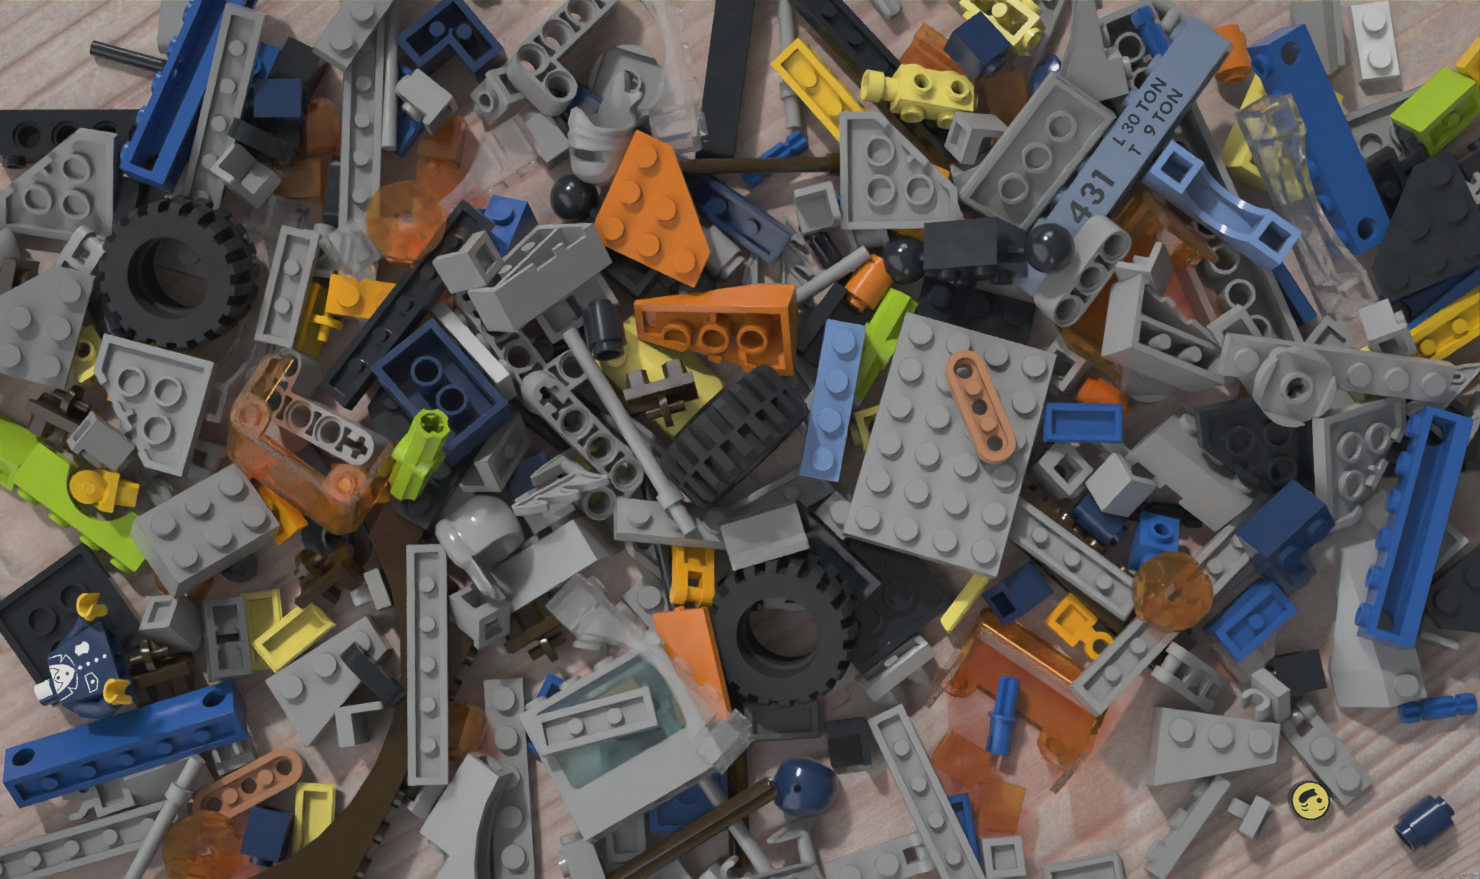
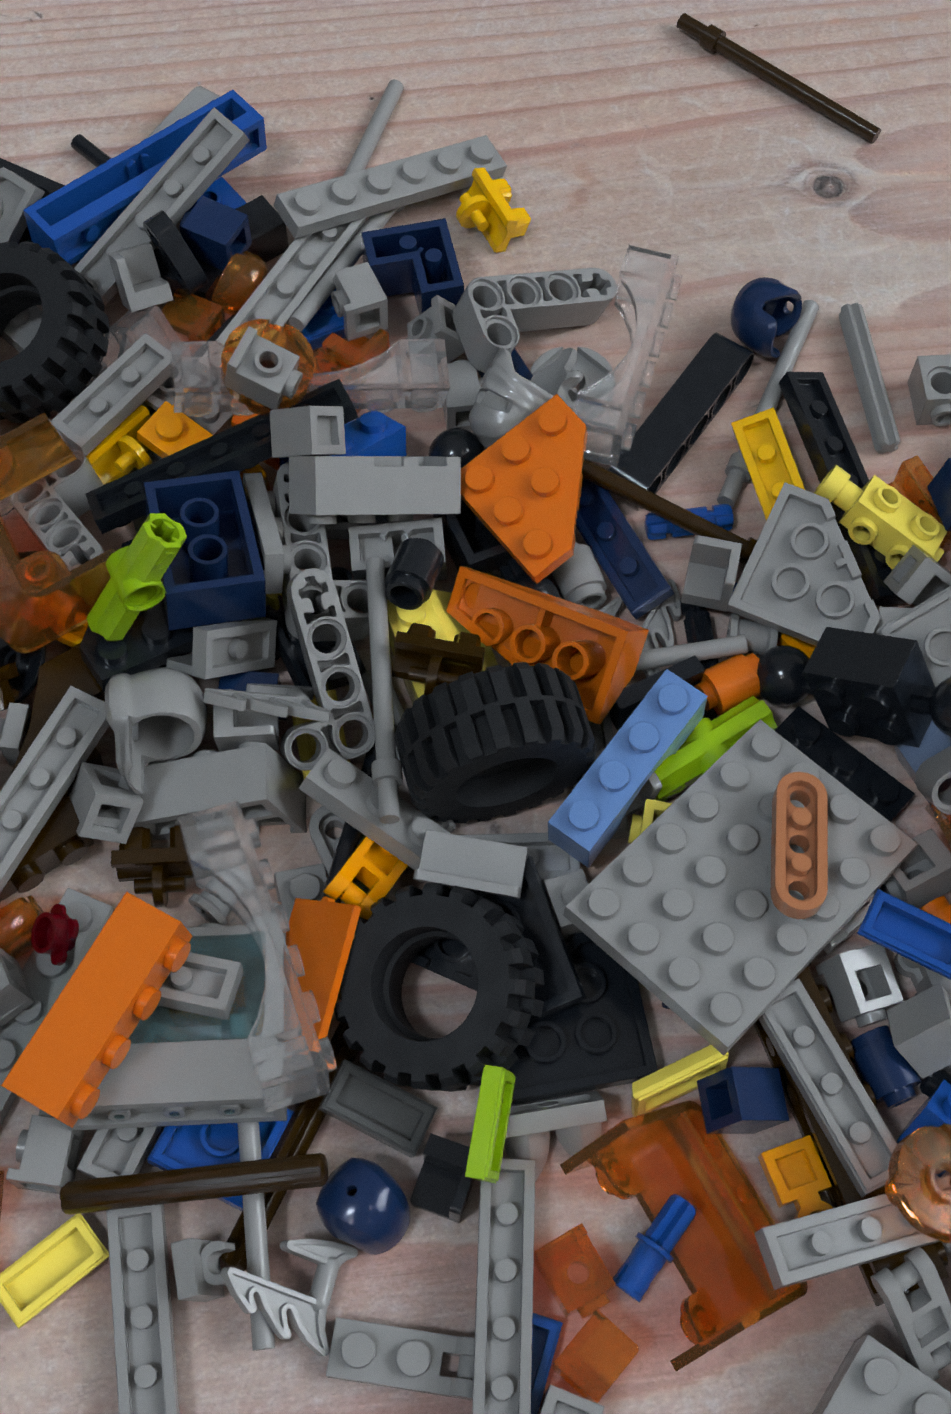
camera: 30 degrees right, 20 degrees down
(401, 246) = (263, 370): none -> light grey brick
(502, 722) = (55, 934): none -> dark red plate
(579, 770) = (99, 1010): none -> orange brick
(865, 702) = (490, 1124): none -> lime tile

